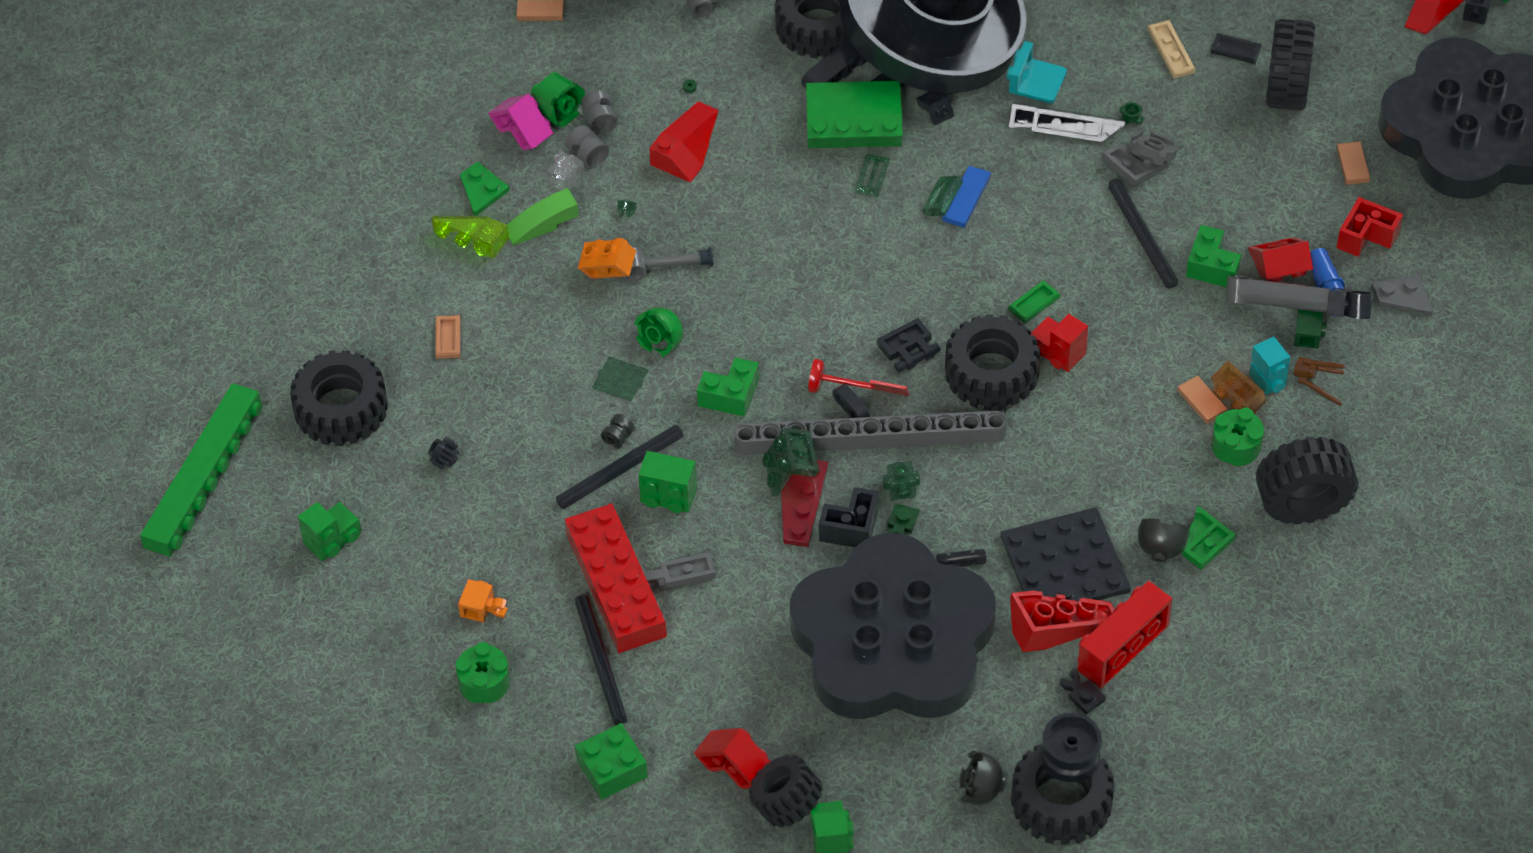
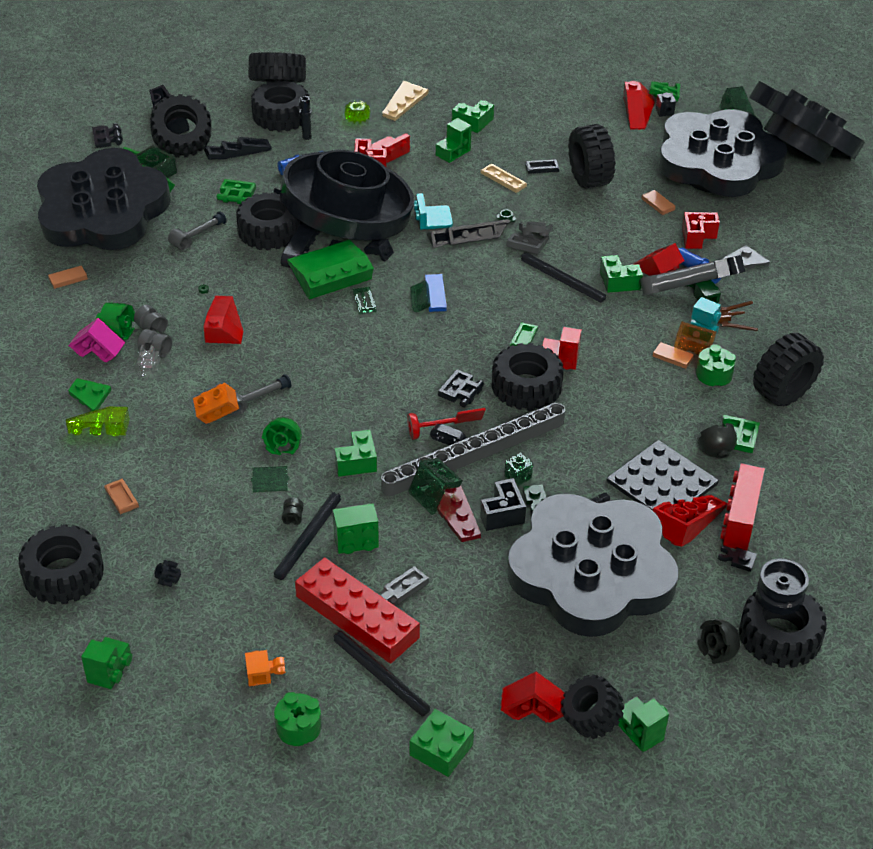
camera: 30 degrees left, 10 degrees down
(543, 217) = (149, 394): bright green slope -> none
(628, 206) = (206, 370): clear green hinge -> none

